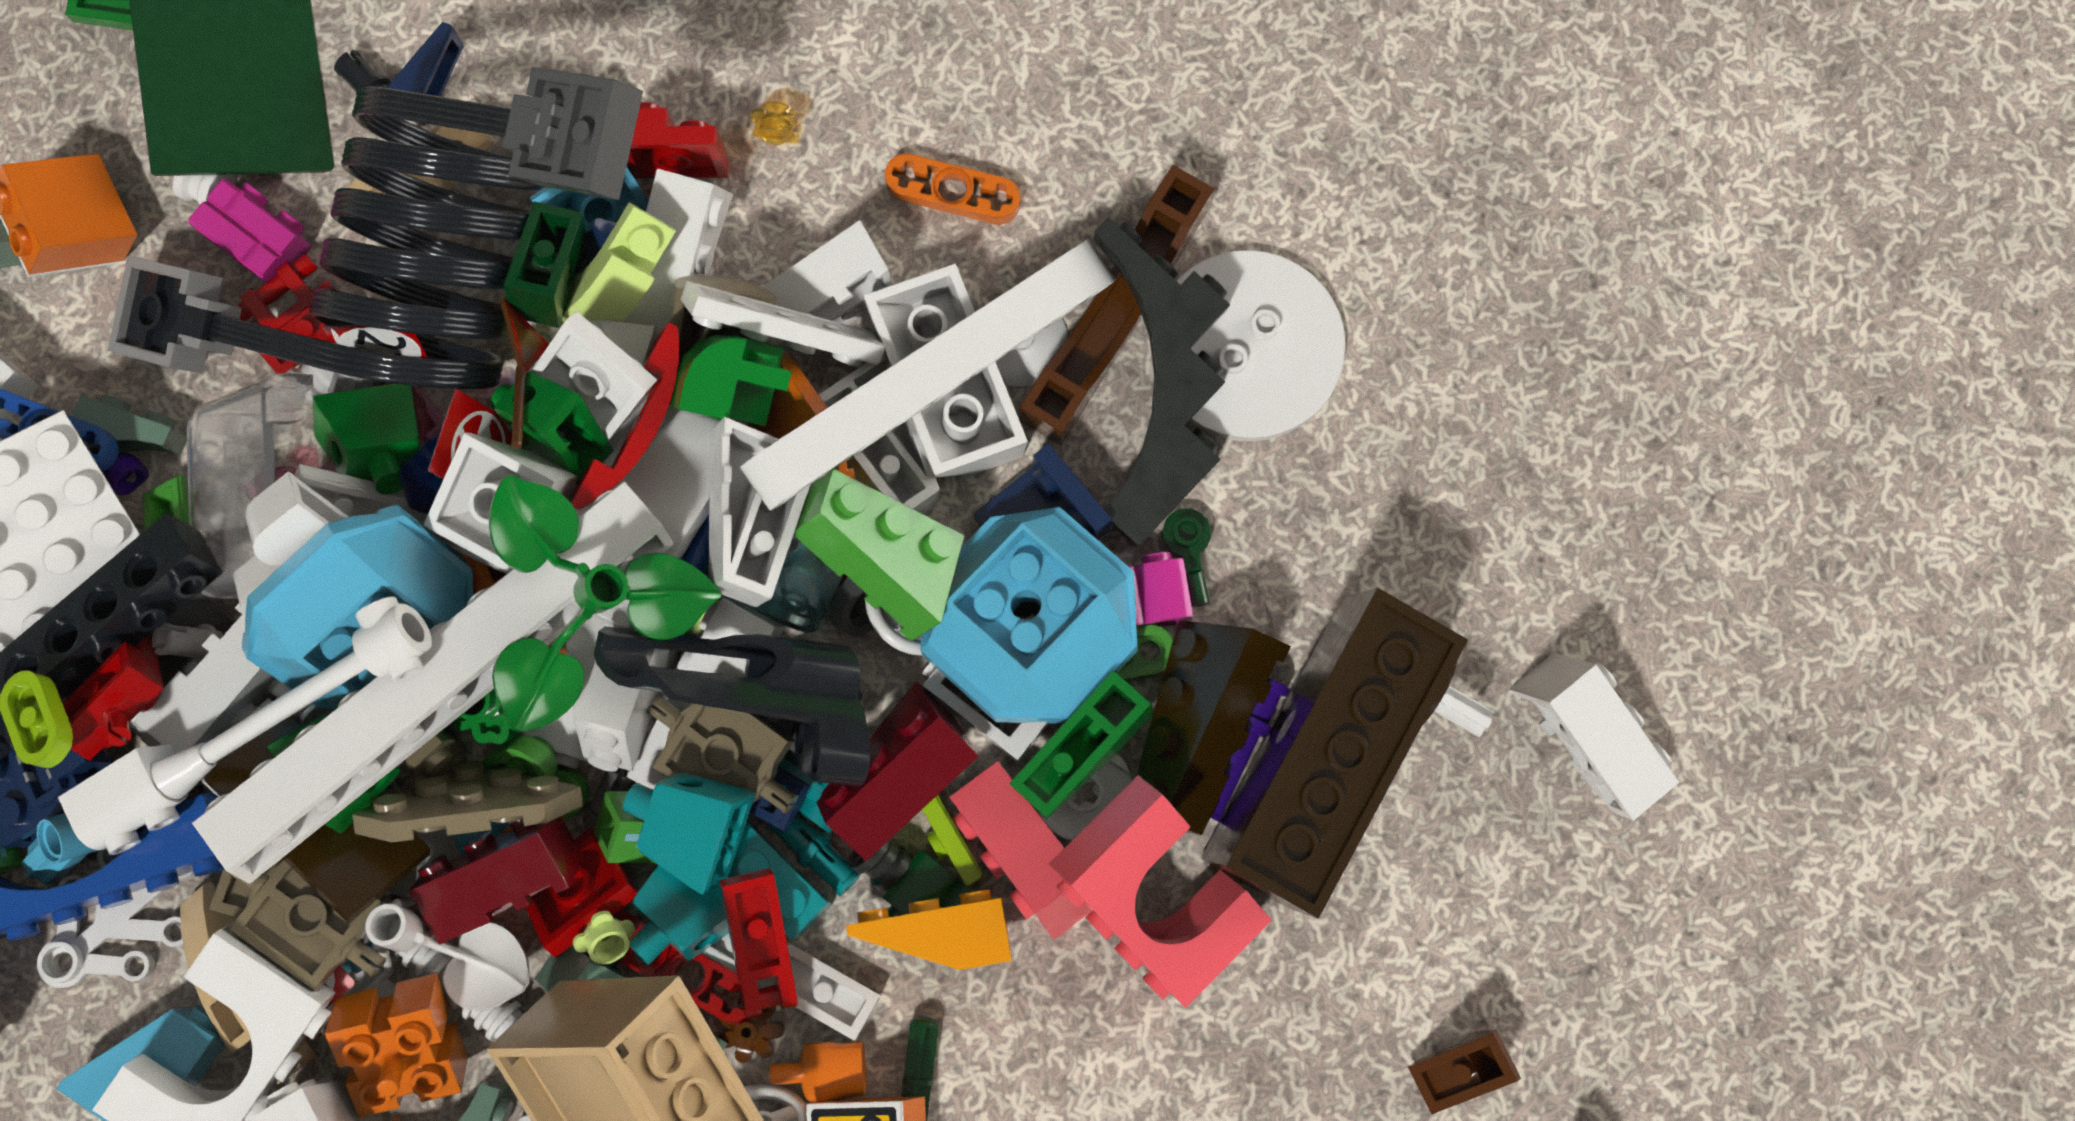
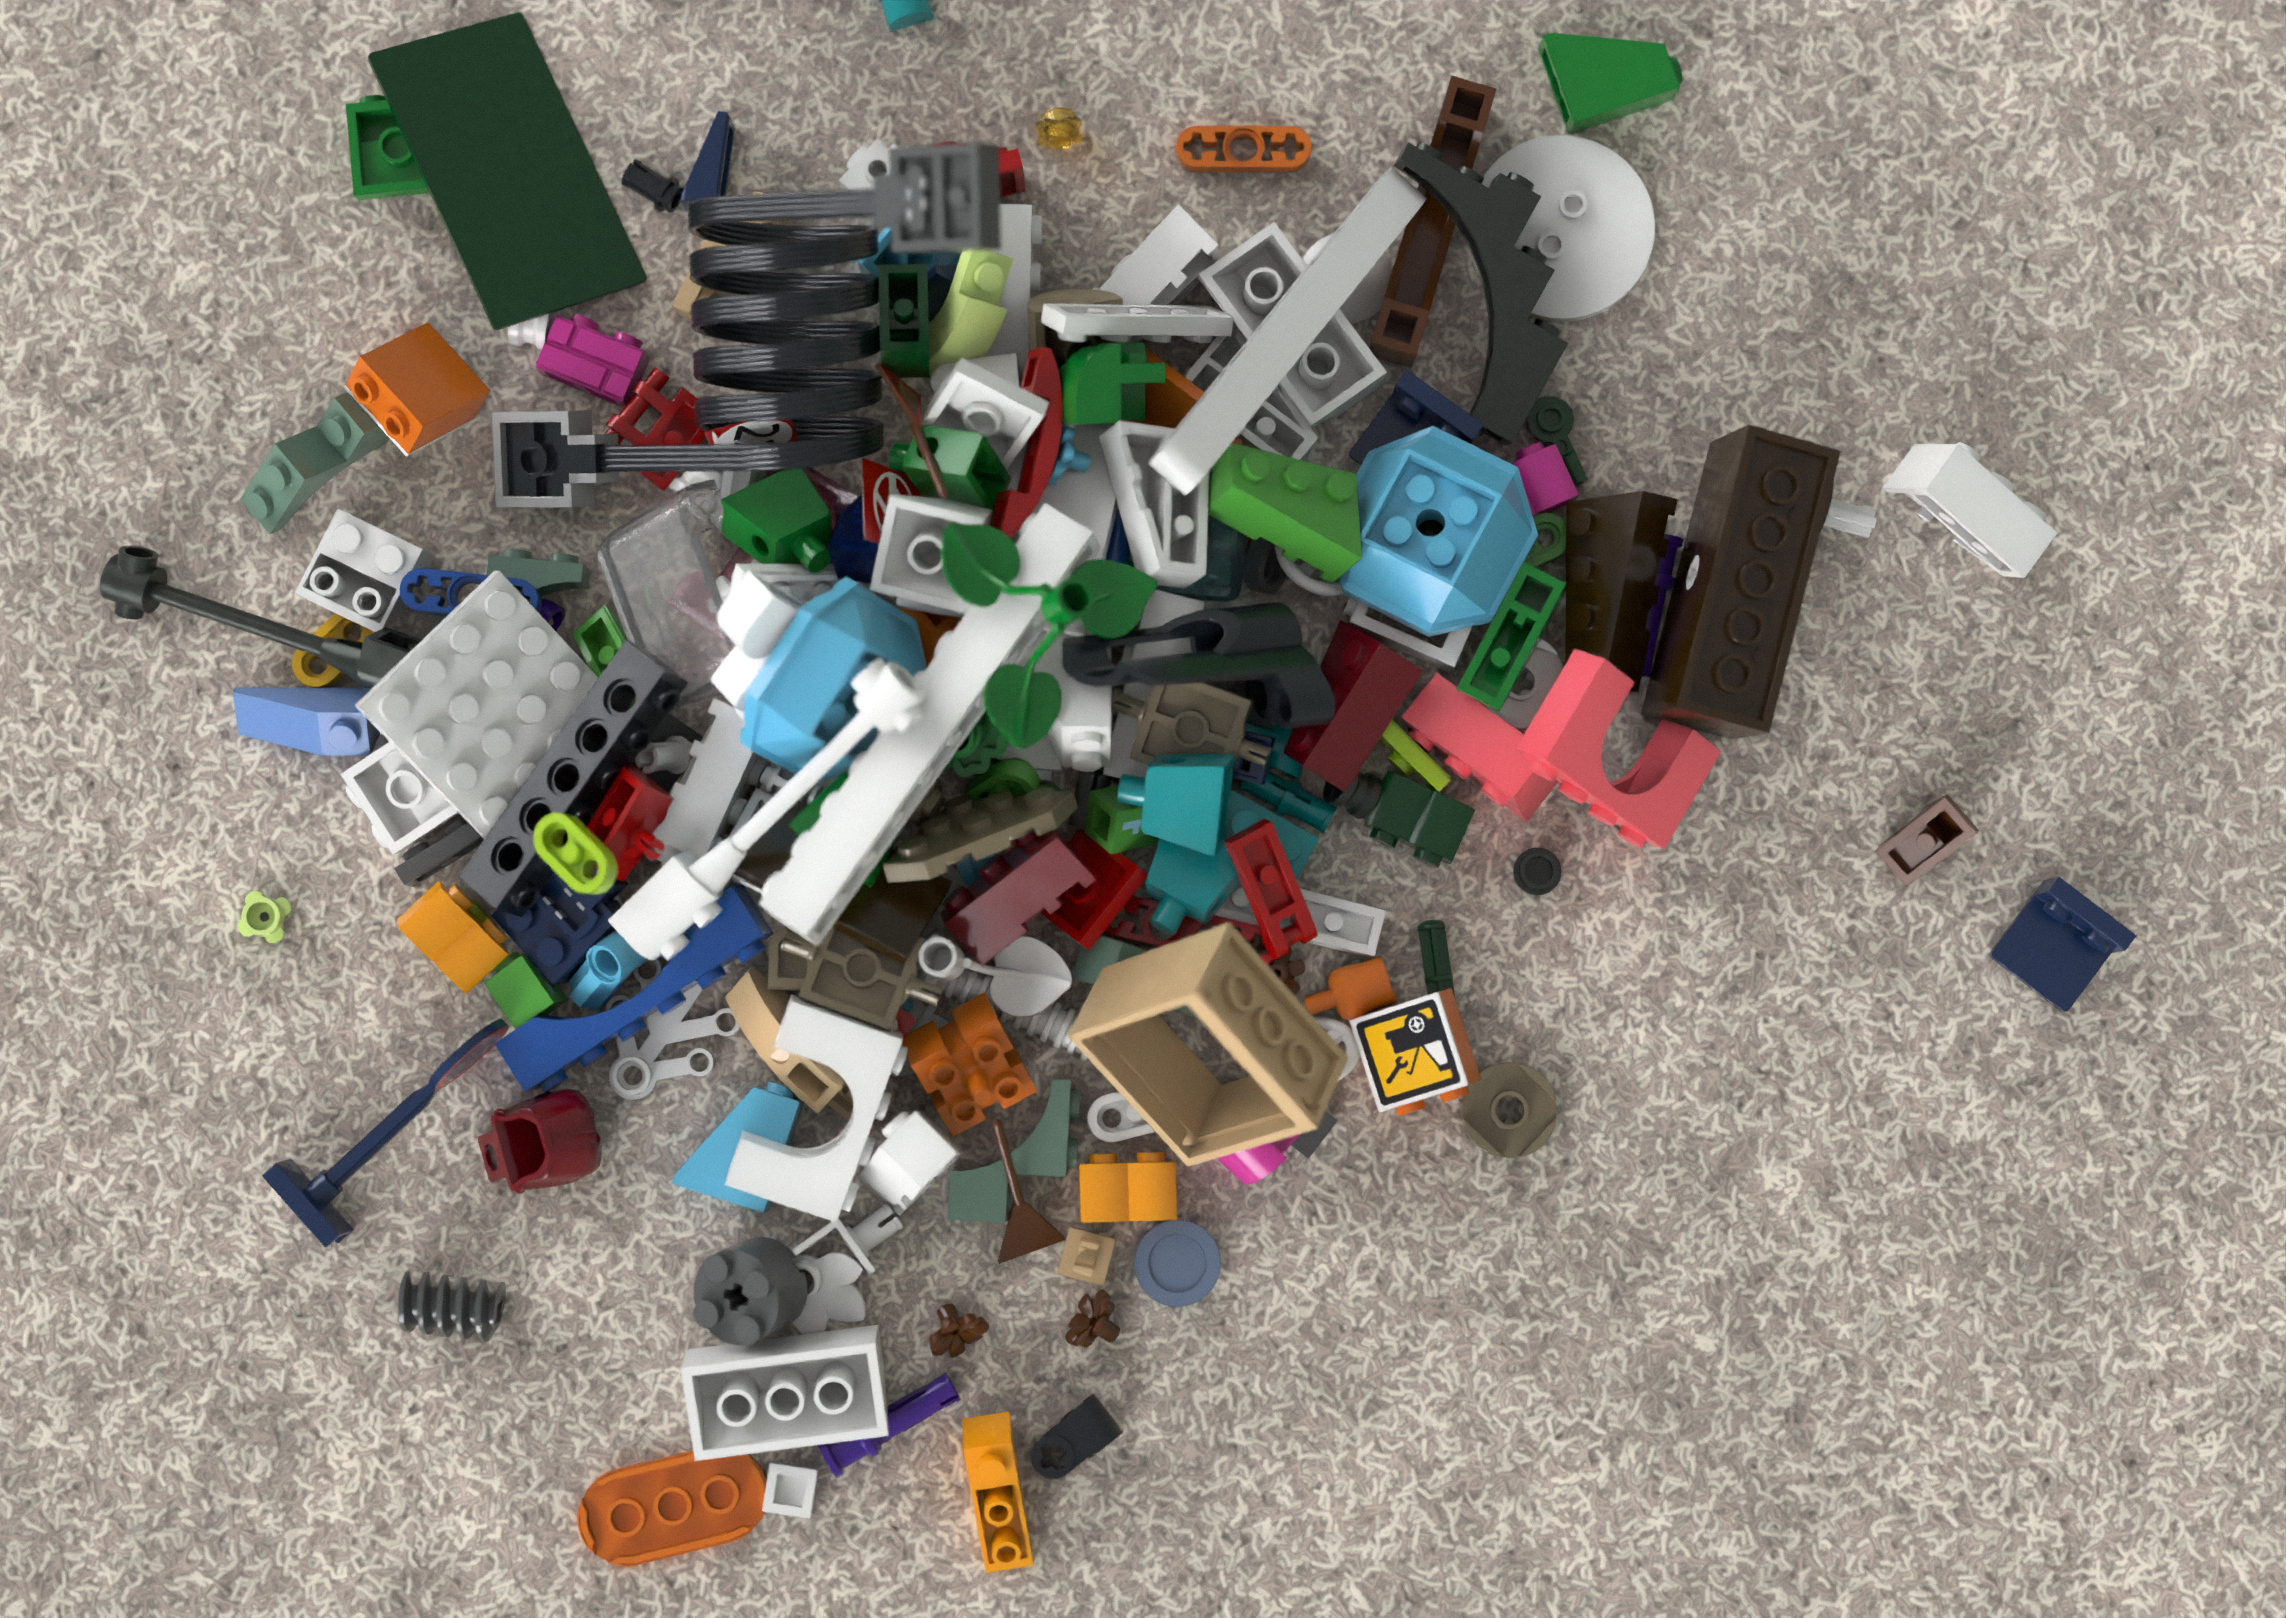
camera: 15 degrees left, 5 degrees up
(605, 938) = (1130, 920): yellowish green plate -> none
(669, 441) = (1067, 456): none -> medium azure plant
(951, 936) = (1440, 838): light orange slope -> none
(1050, 994) = (1537, 871): none -> pearl dark grey plate
(1332, 208) = (1606, 77): none -> green slope

